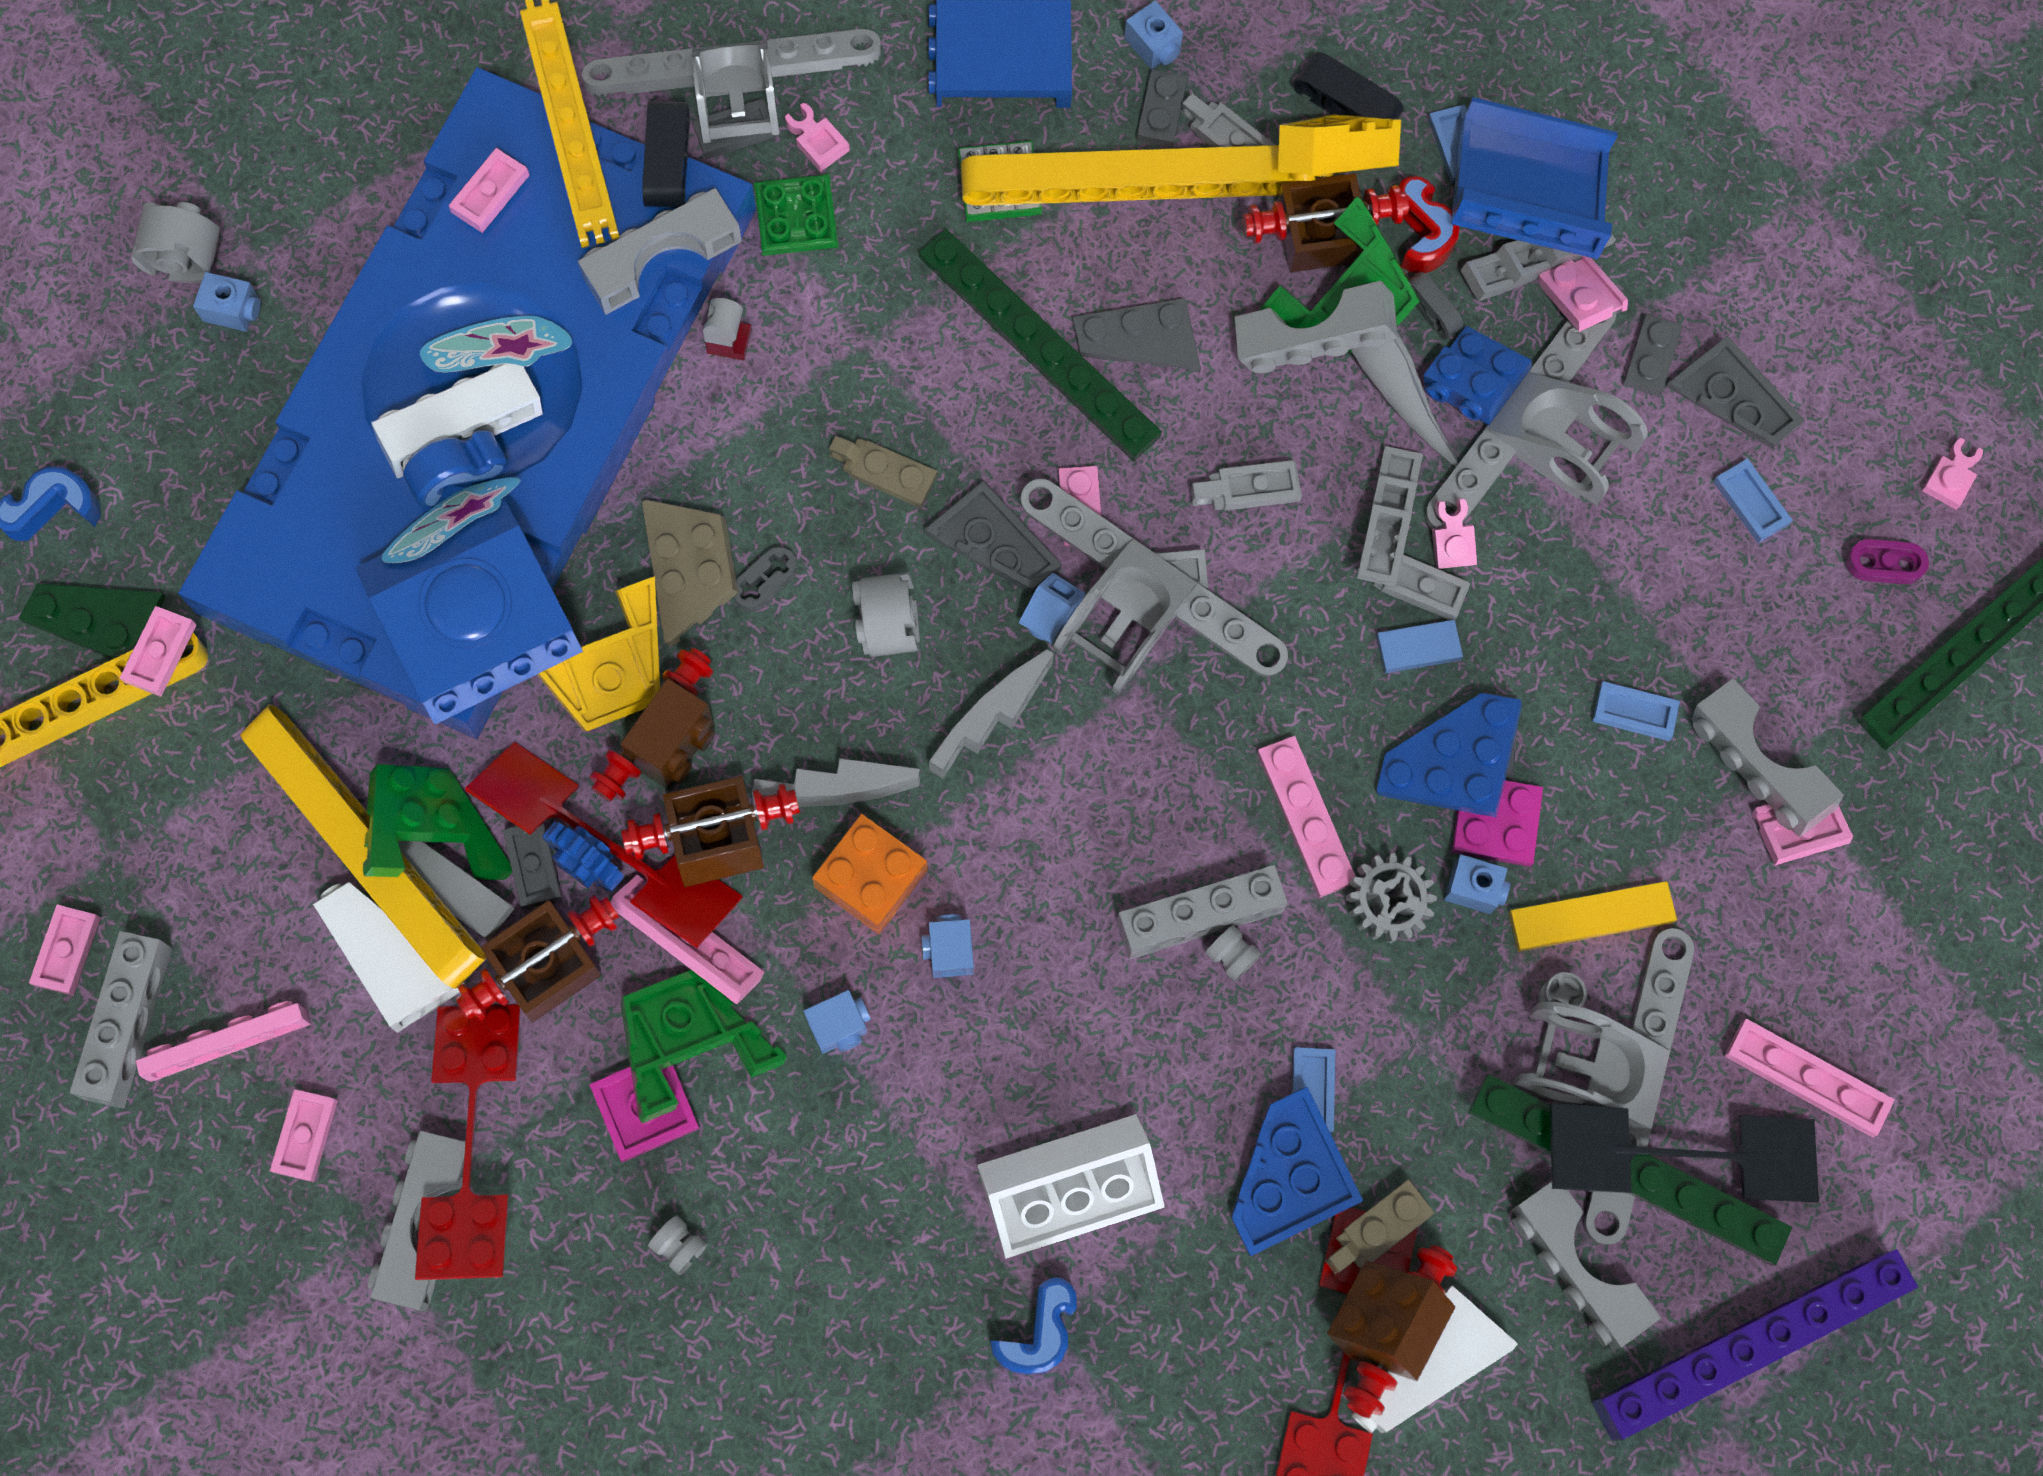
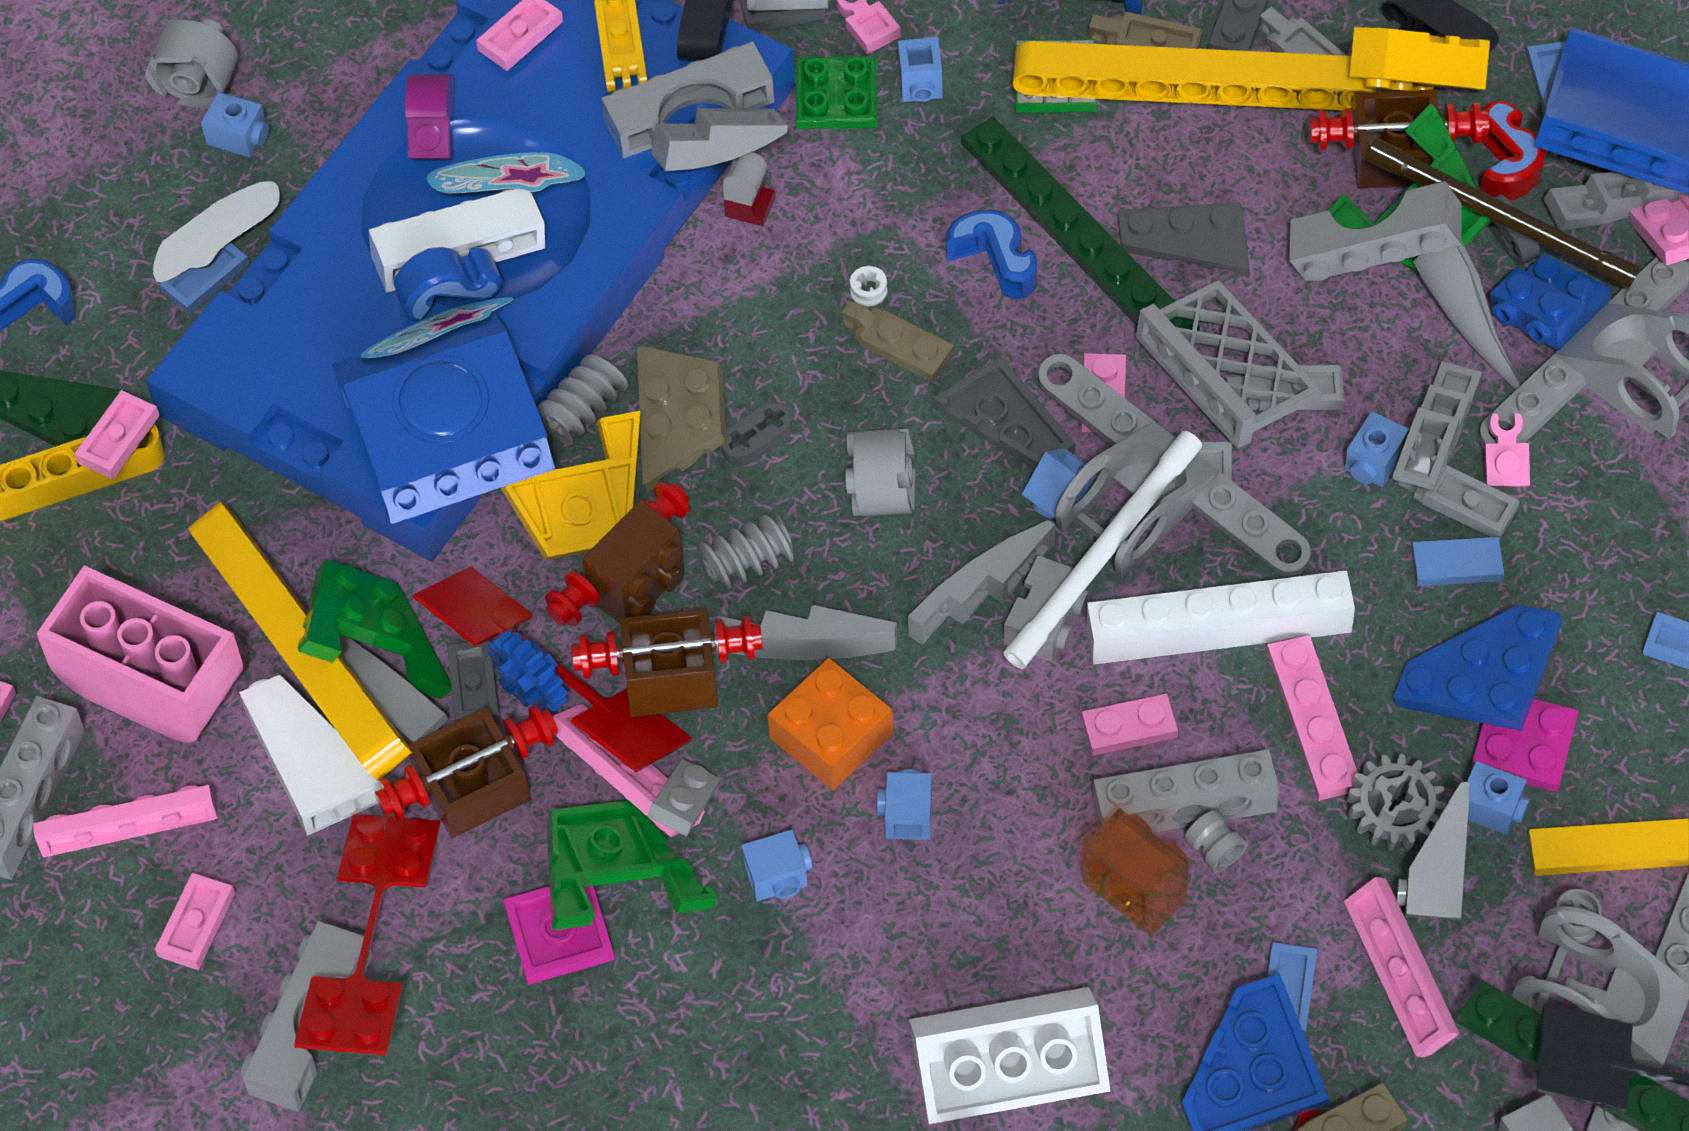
camera: 15 degrees right, 15 degrees down
(211, 881) = (139, 655): none -> bright pink brick
(219, 461) = (199, 284): none -> medium blue tile
(221, 413) = (212, 229): none -> white sticker
(412, 288) = (428, 114): none -> magenta brick
(595, 560) = (579, 395): none -> light grey piece
(677, 1244) = (574, 1066): light grey wheel -> none
(691, 288) = (715, 137): none -> light grey slope
(744, 965) = (684, 797): none -> light grey plate
(771, 705) = (745, 550): none -> light grey piece
(862, 413) = (872, 297): none -> white bush
(873, 189) = (920, 69): none -> medium blue brick
(970, 359) = (1001, 239): none -> blue animal
(1050, 768) = (1036, 632): none -> white piece
(1058, 724) = (1042, 583): none -> light grey brick
(1078, 132) = (1143, 31): none -> dark tan hinge
(1141, 841) = (1129, 724): none -> bright pink plate
(1163, 481) = (1200, 373): none -> light grey fence
(1167, 997) = (1136, 871): none -> clear orange brick
(1213, 729) = (1219, 617): none -> white brick
(1336, 544) = (1375, 450): none -> medium blue brick
(1412, 1060) = (1401, 967): none -> bright pink plate
(1436, 964) = (1437, 873): none -> light grey slope
(1521, 335) = (1600, 261): none -> dark brown piece

